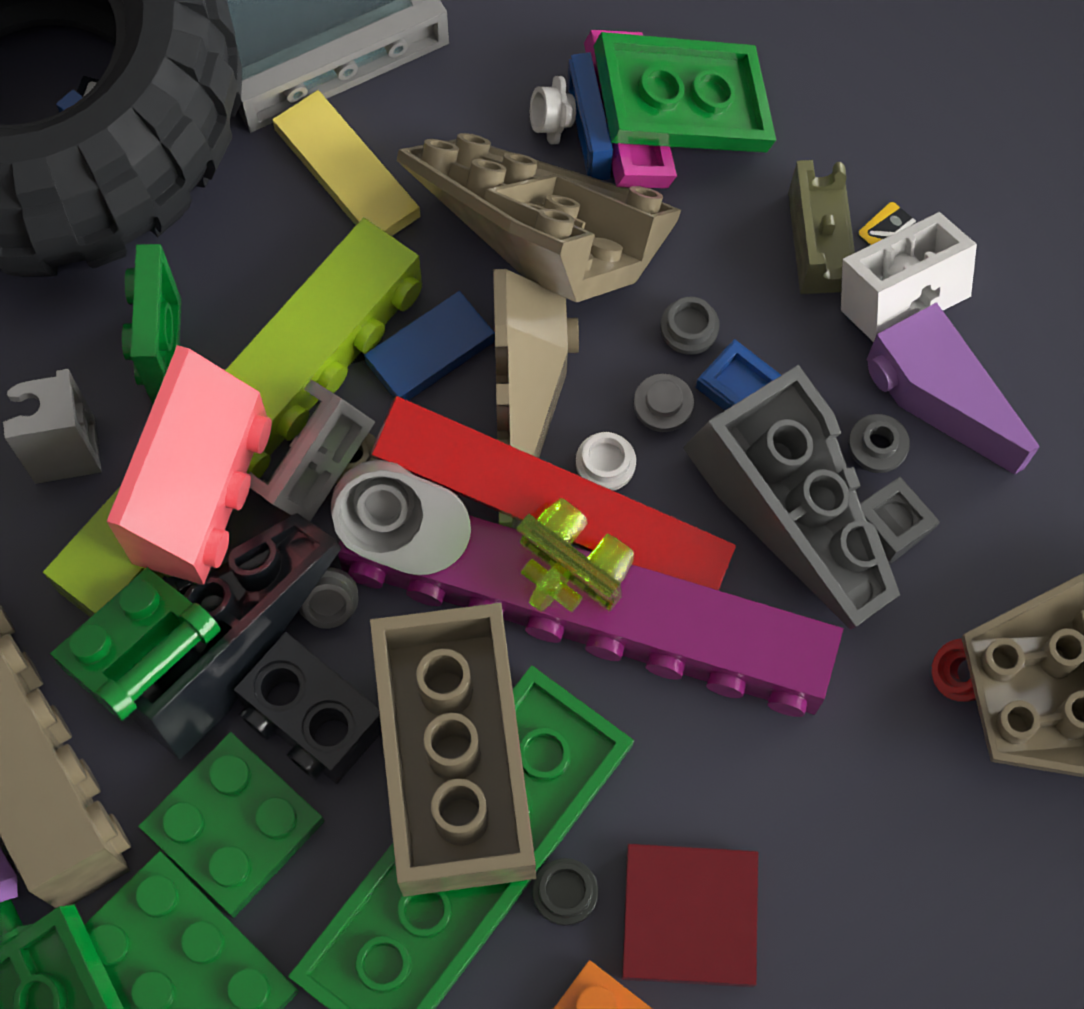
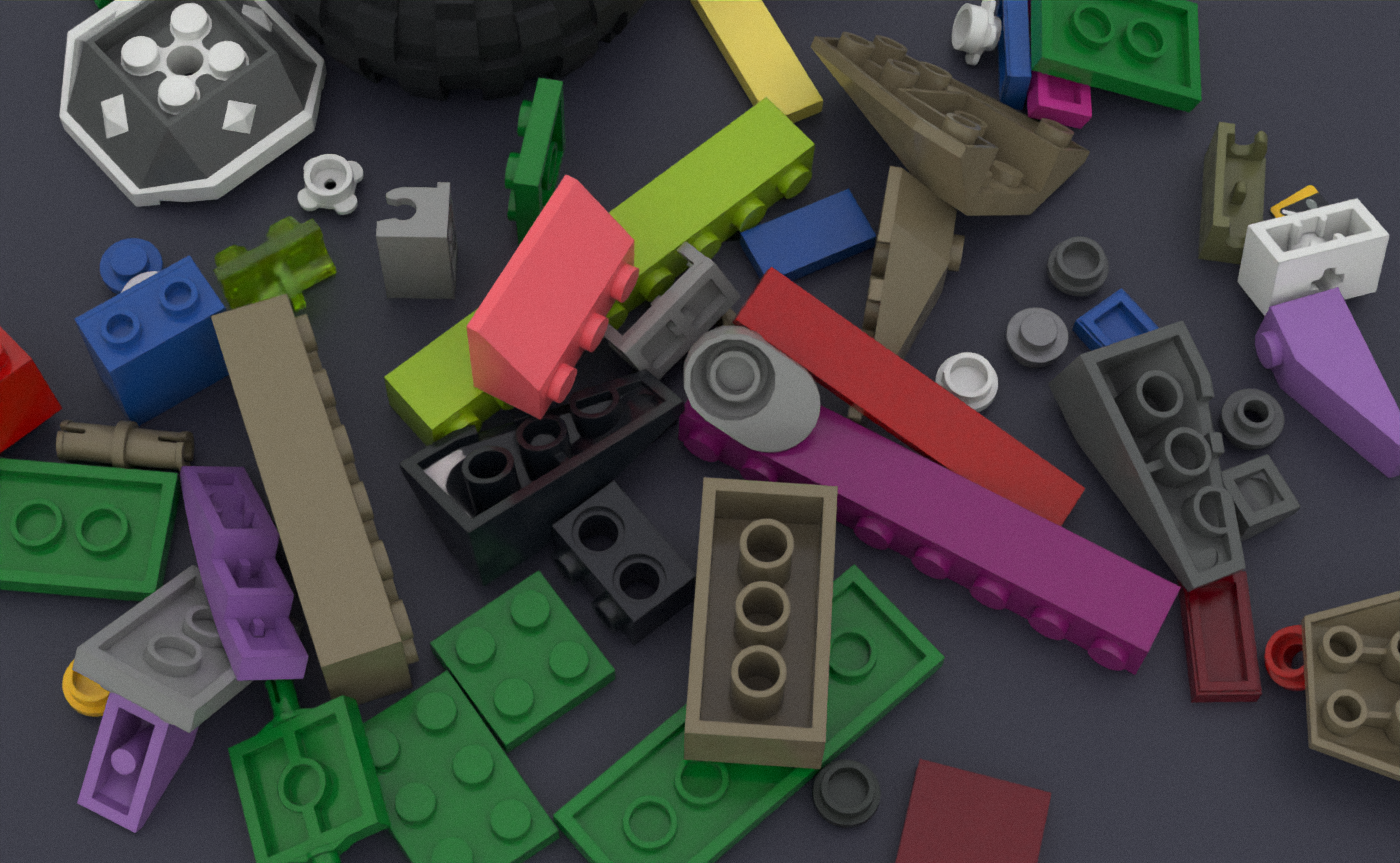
camera: 10 degrees right, 5 degrees down
(133, 642) = (463, 457): green plate -> none
(331, 600) = (662, 463): flat silver plate -> none
(551, 541) = (898, 442): clear neon green hips -> none
(889, 668) = (1220, 641): none -> dark red tile

